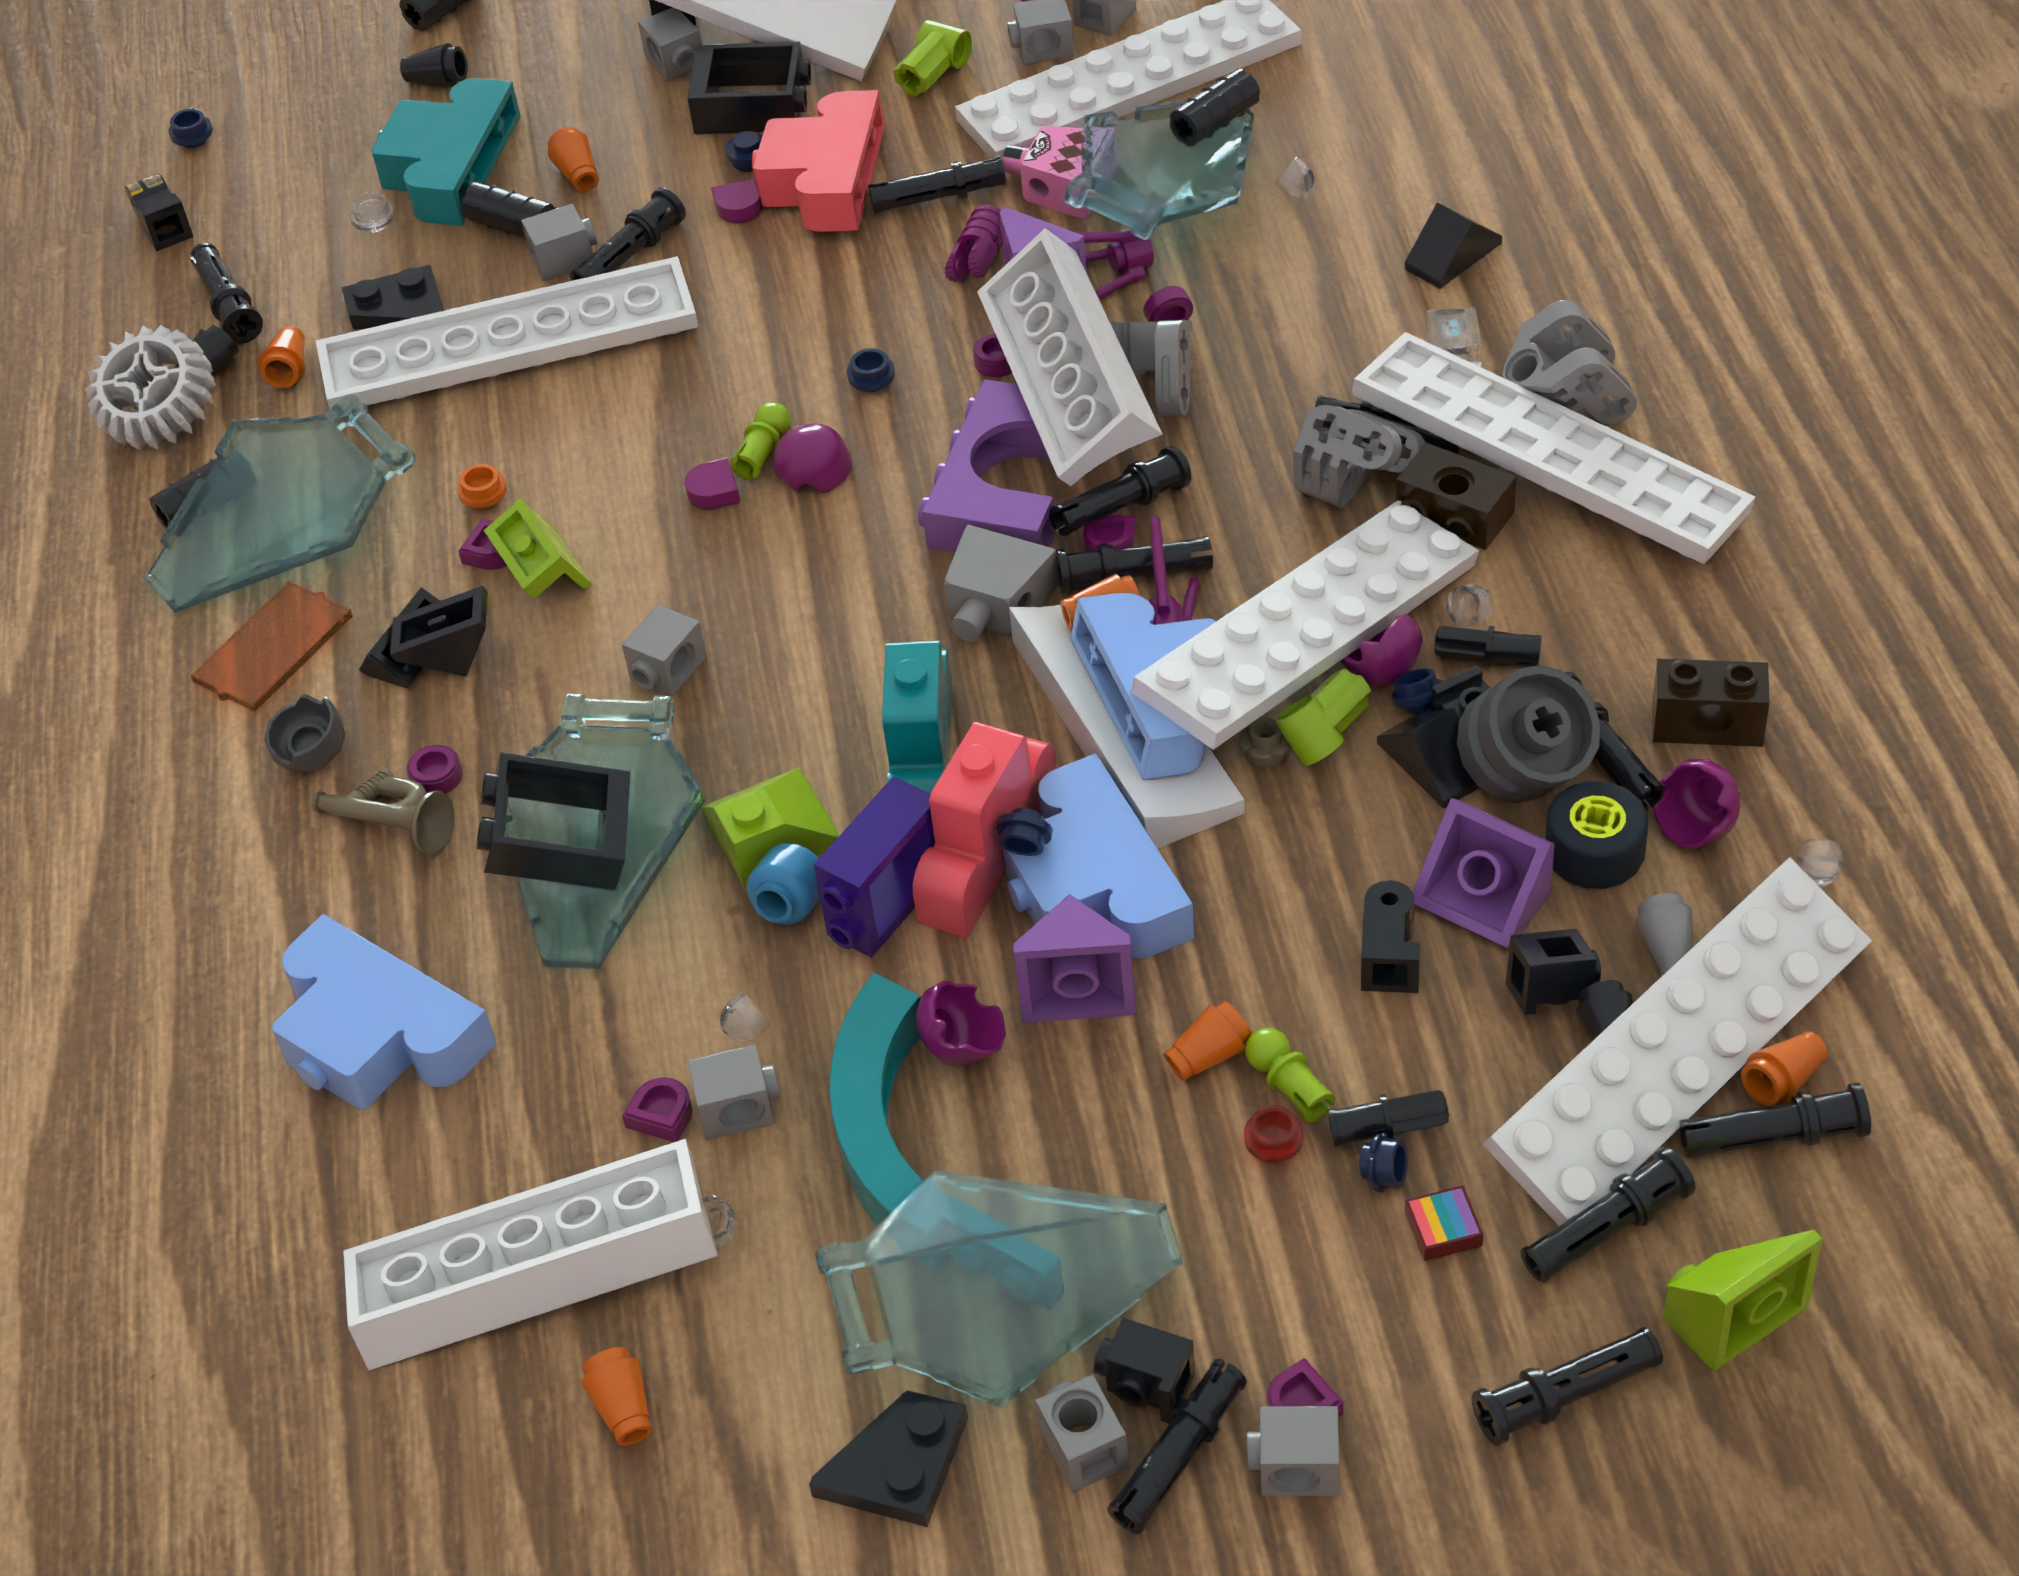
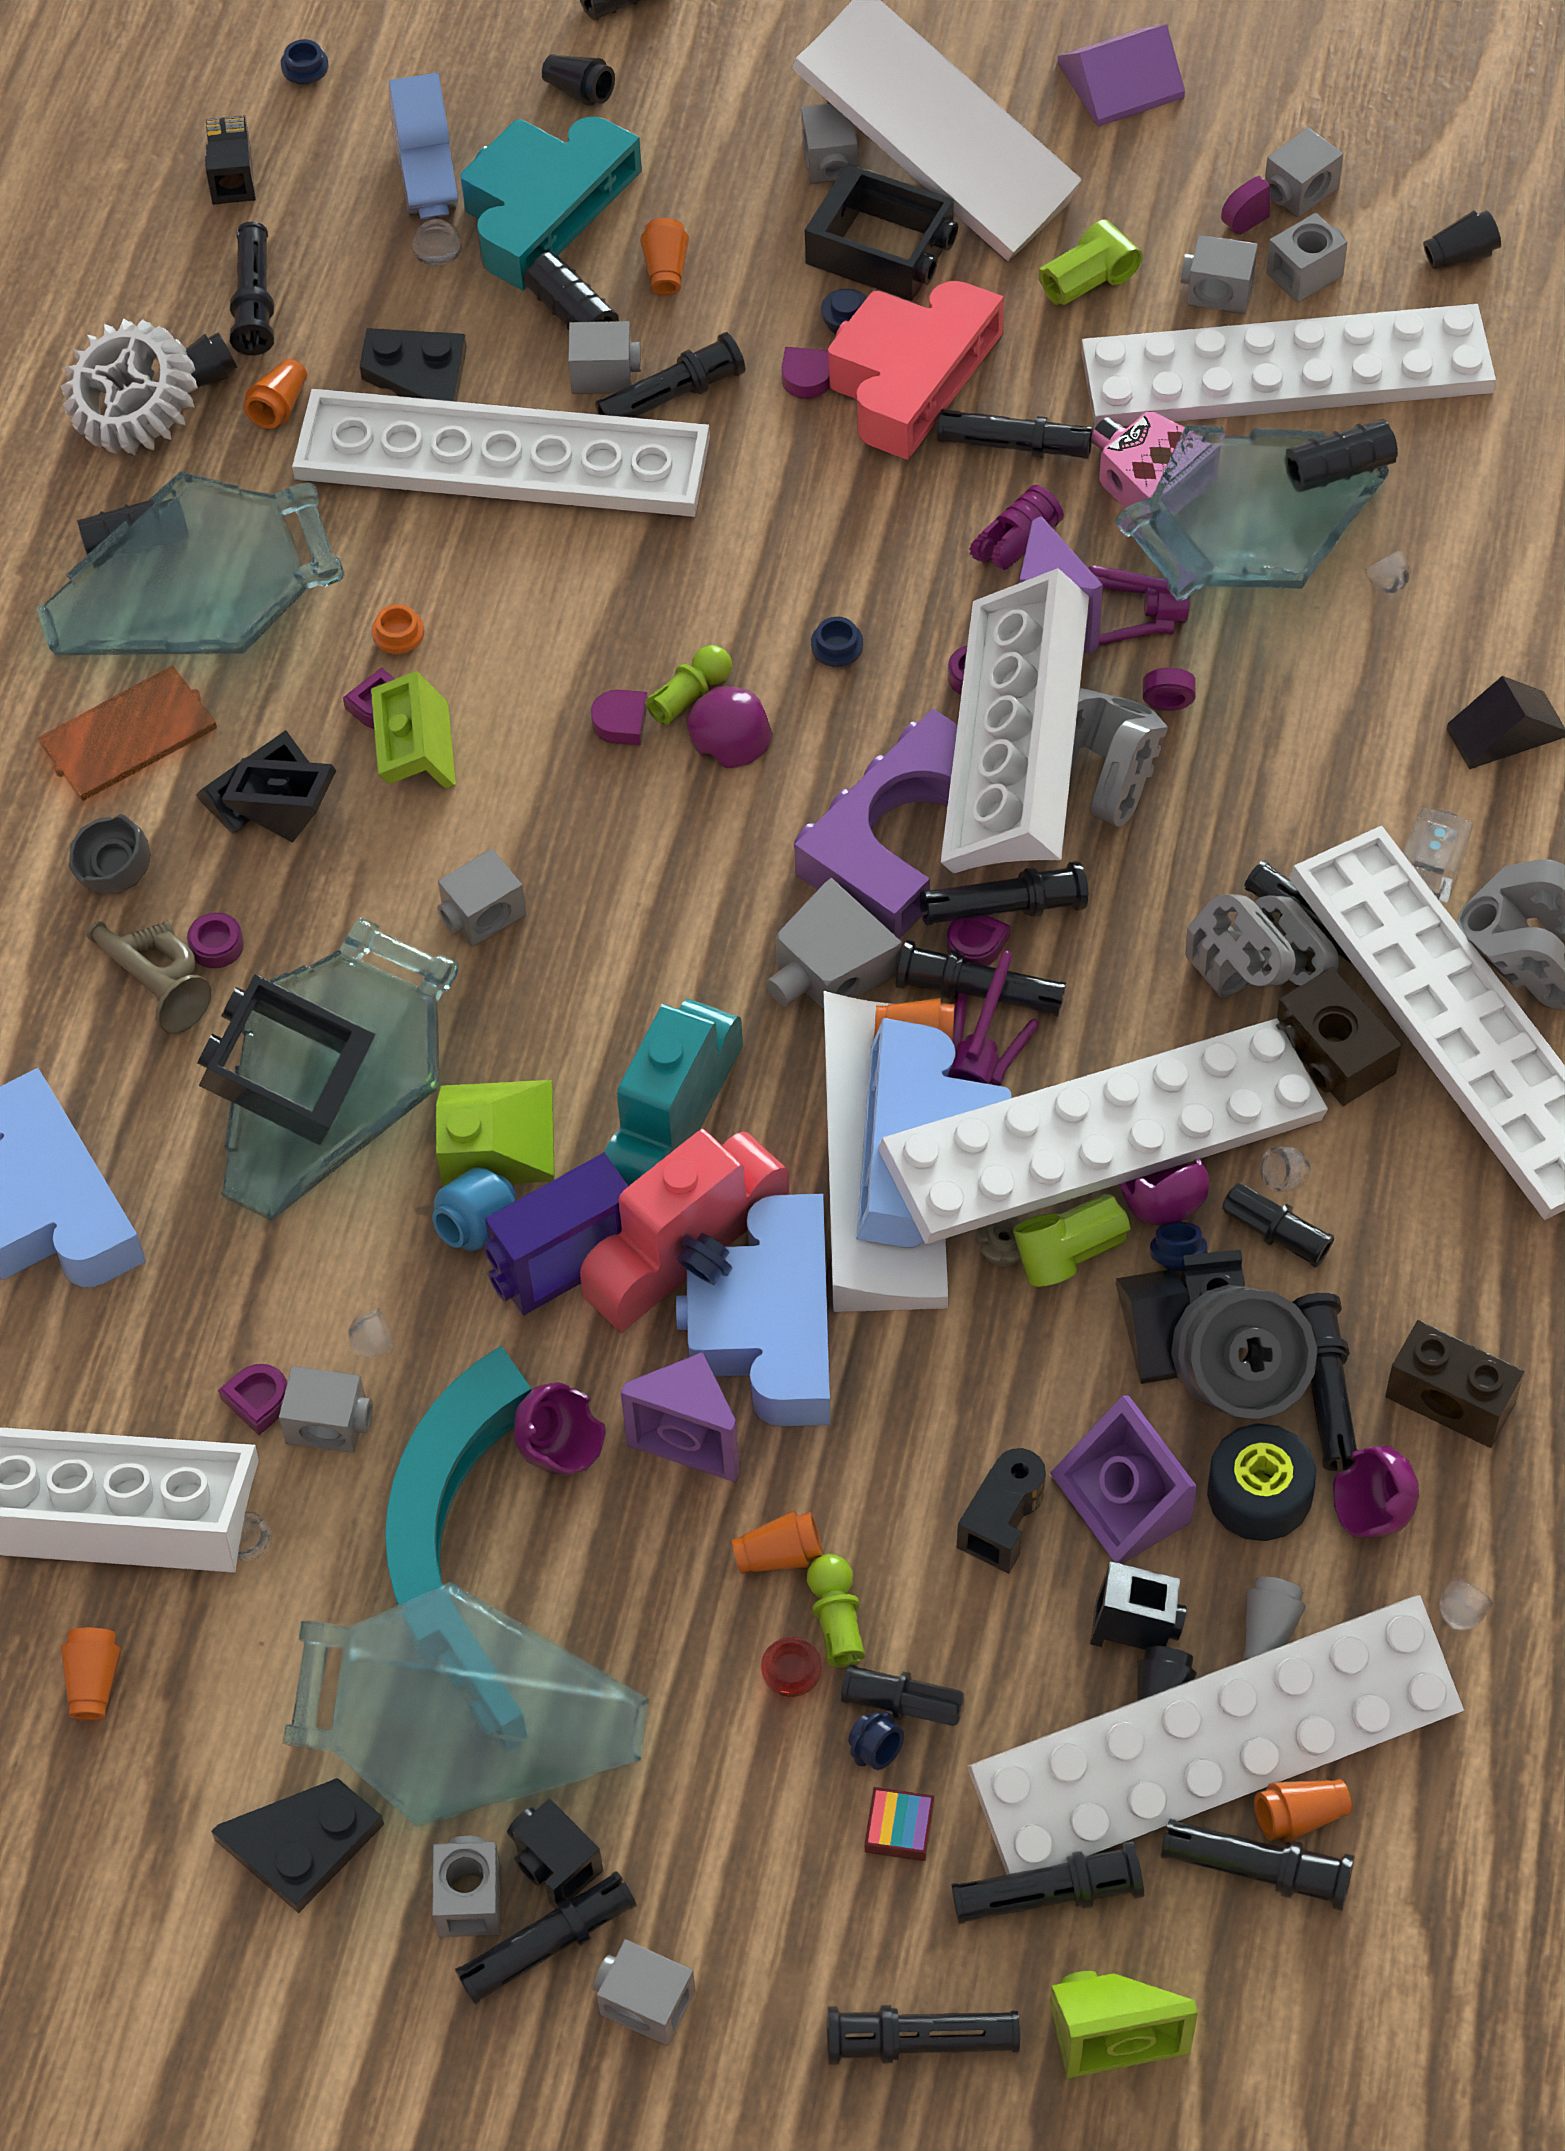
camera: 20 degrees right, 10 degrees up
(325, 129) = (423, 145): none -> light blue brick
(1302, 1387) = (681, 1937): magenta tile -> none

